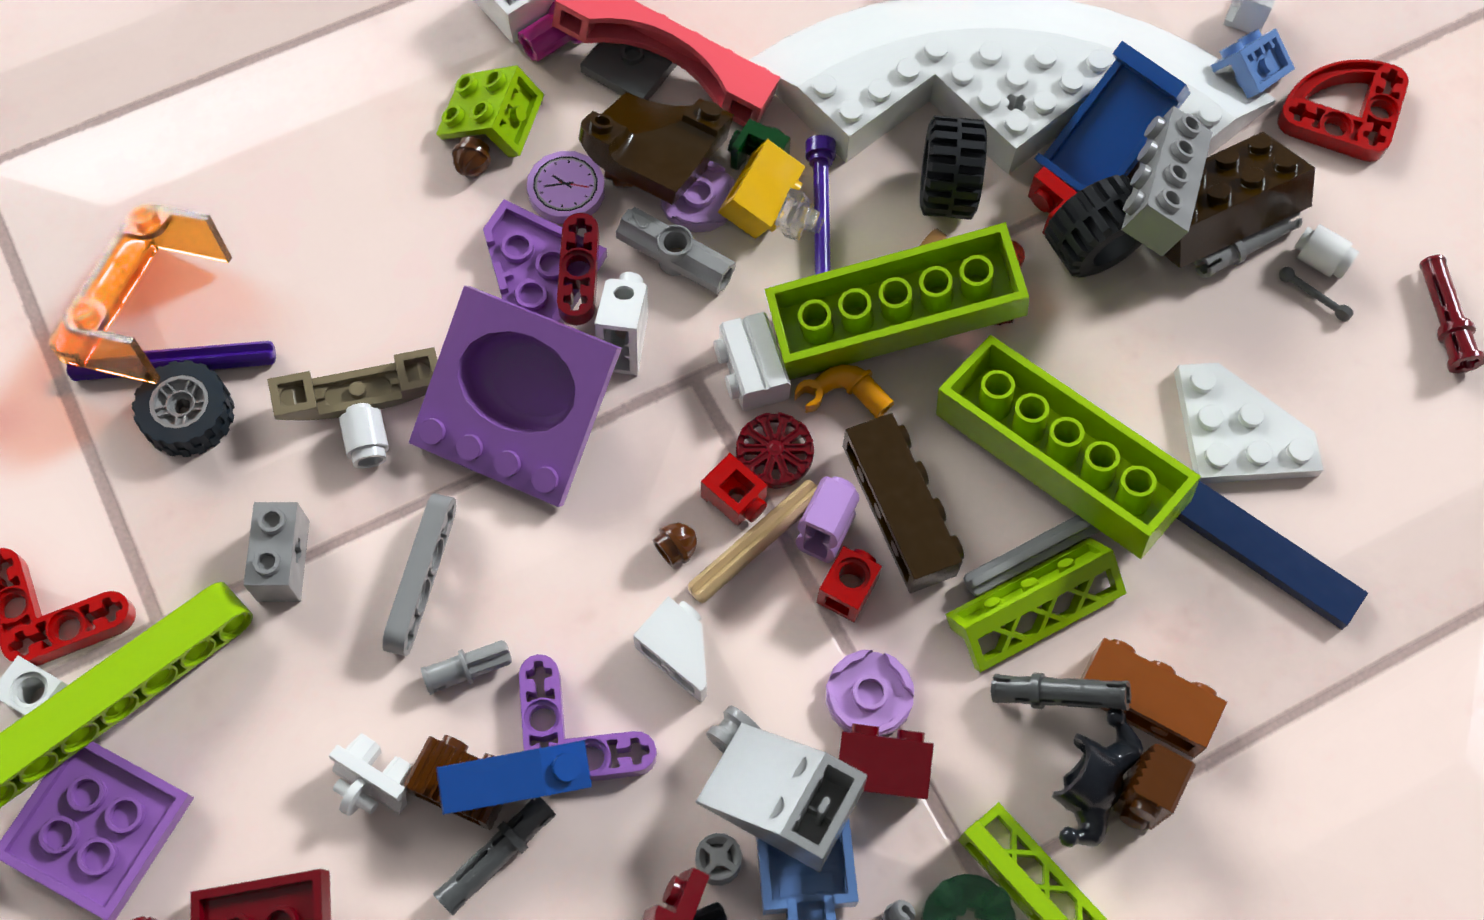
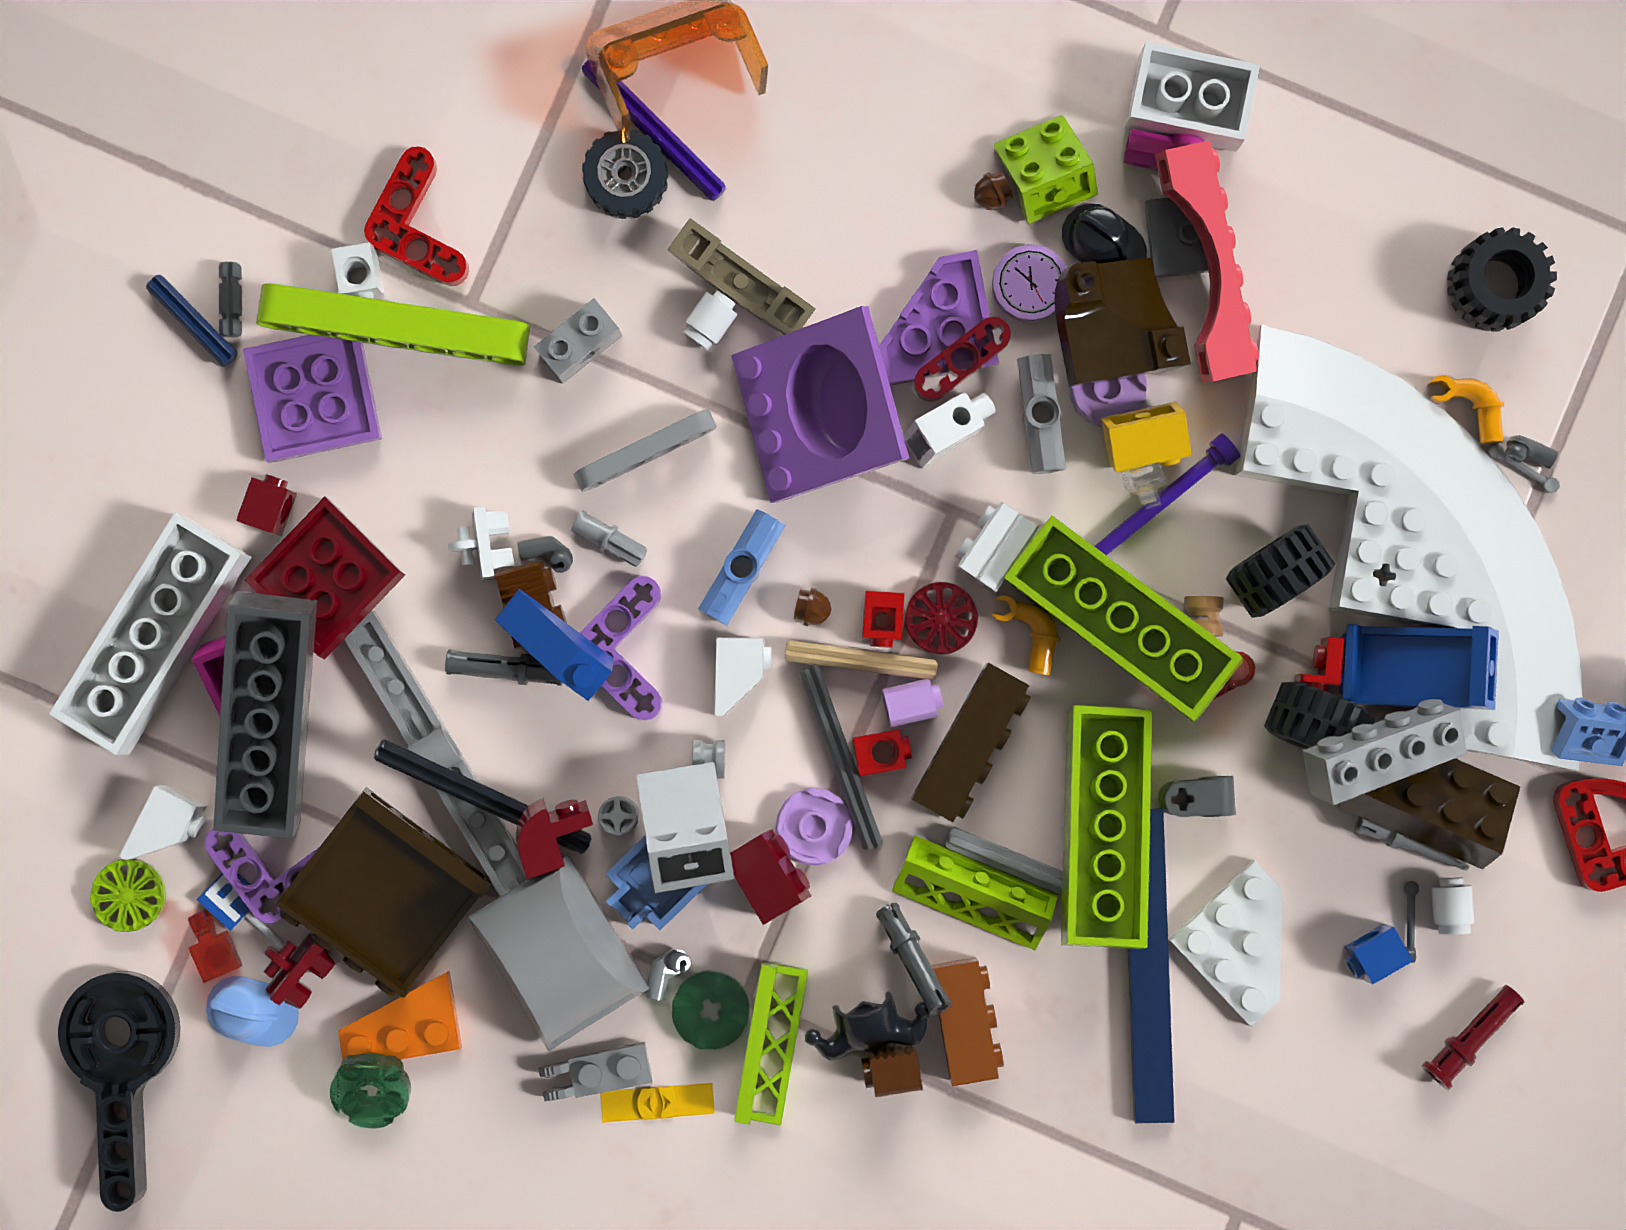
camera: 55 degrees right, 20 degrees up
(430, 723) = (549, 549): none -> dark grey arm
(566, 110) = (1101, 236): none -> black piece
(598, 595) = (755, 544): none -> medium blue piece
(750, 138) = (1192, 402): dark green bracket -> none
(827, 622) = (841, 757): none -> dark grey axle
(1093, 363) = (1204, 797): none -> dark grey piece
(1328, 330) = (1377, 954): none -> blue brick

